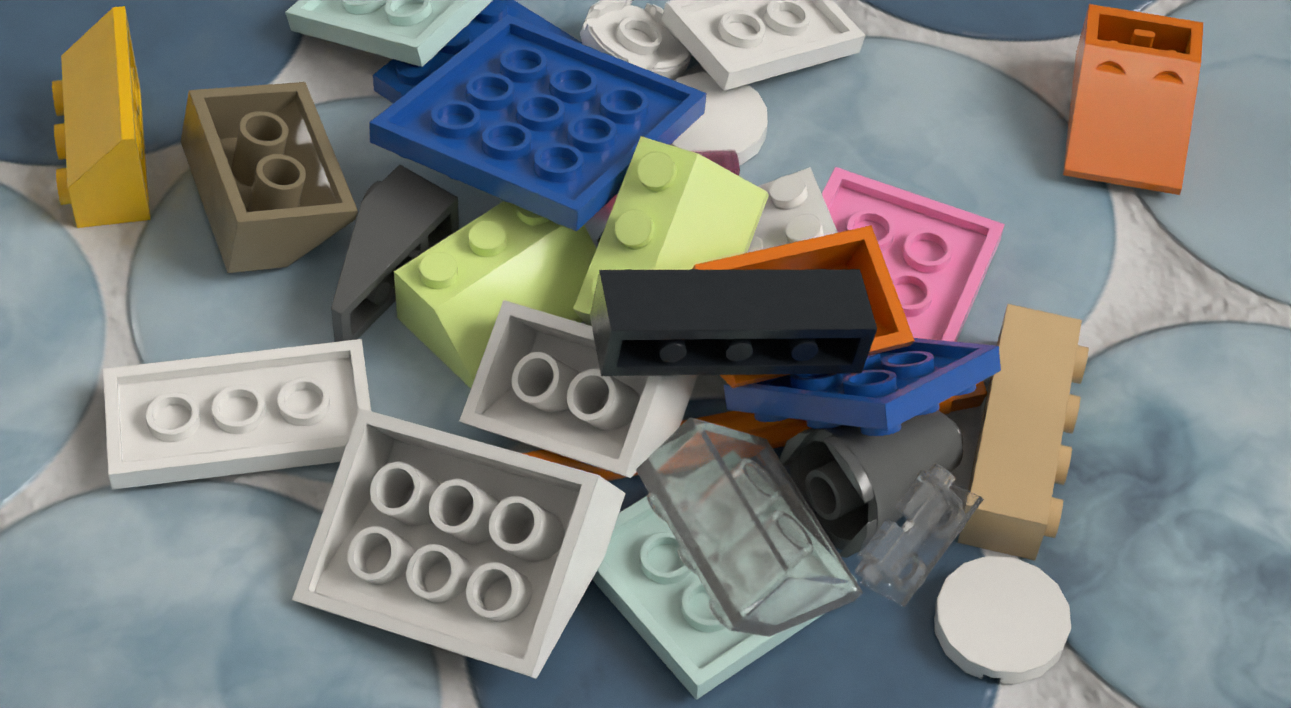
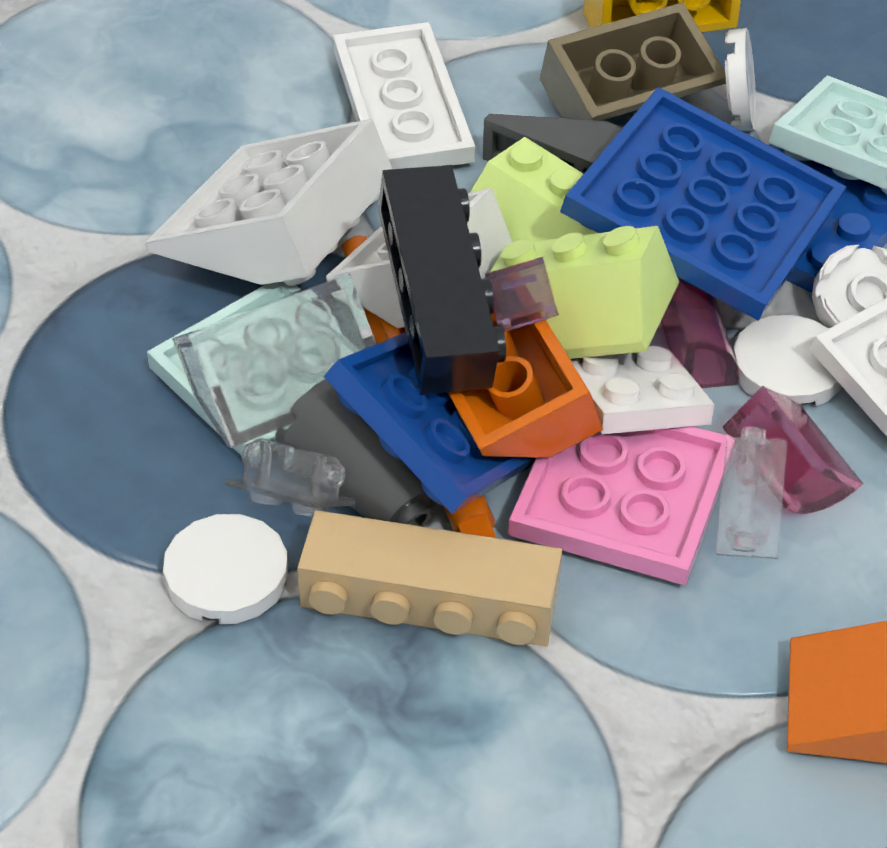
camera: 90 degrees right, 5 degrees down
(329, 72) = (741, 80): none -> white tile
(749, 245) = (522, 294): none -> tile
(846, 133) = (814, 469): none -> clear pink brick
(910, 164) = (752, 495): none -> clear hinge

